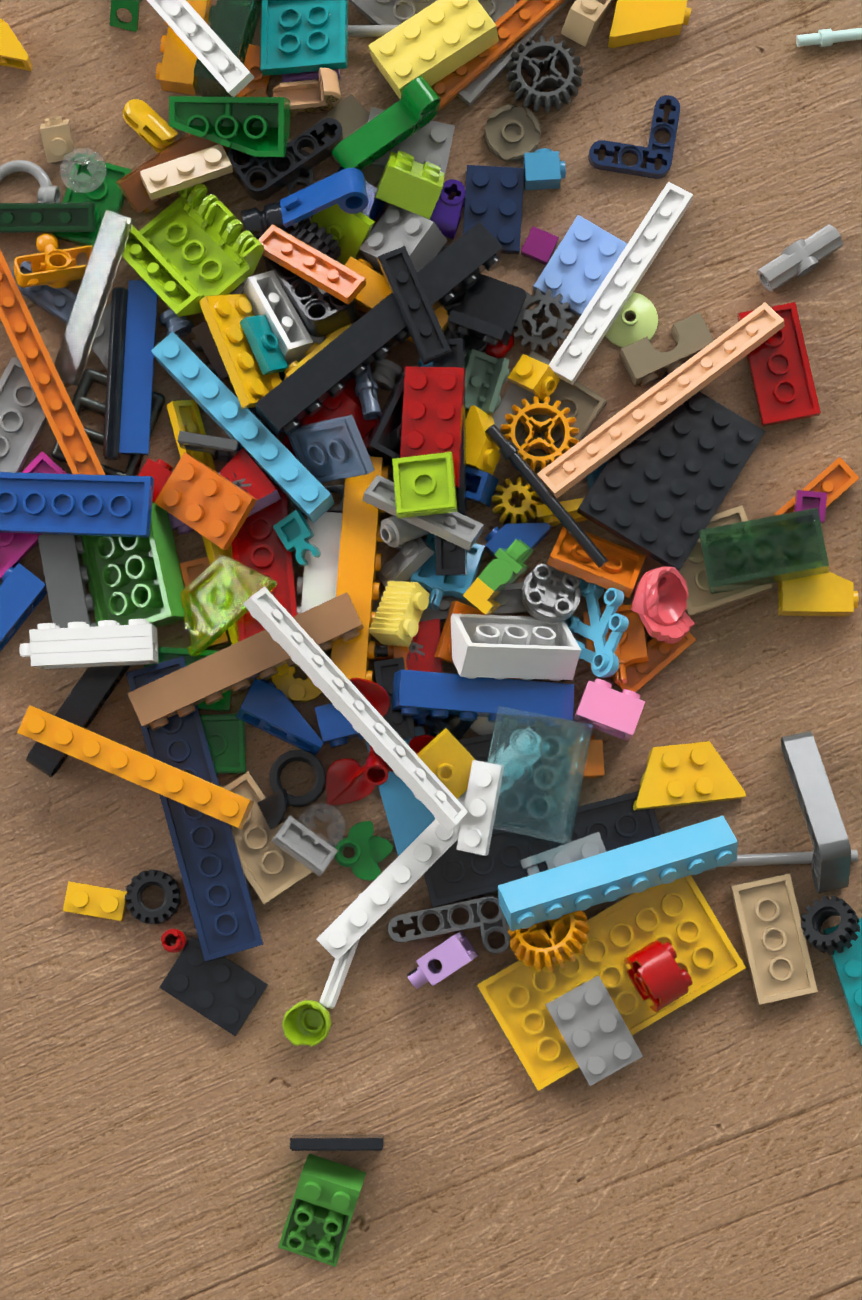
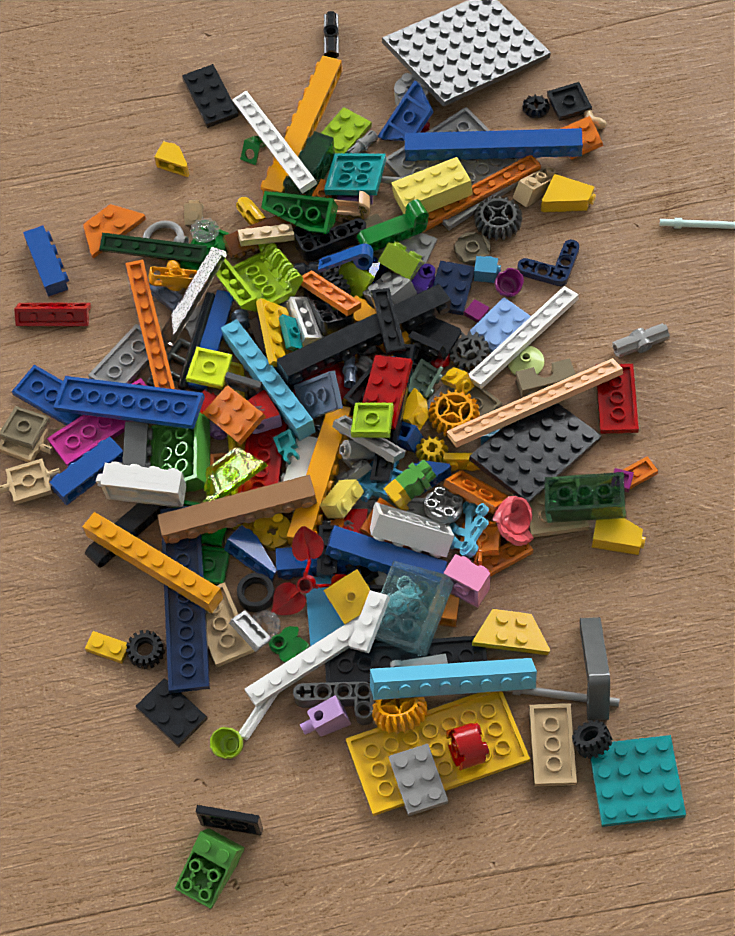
camera: 15 degrees right, 20 degrees down
(147, 421) = (209, 368): none -> neon yellow plate
(180, 943) = (151, 673): red pin -> none
(274, 808) = (236, 604): black tile -> none
(355, 708) = (301, 544): white plate -> none
(509, 451) = (432, 416): black bar -> none
(582, 190) = (509, 282): none -> magenta hair

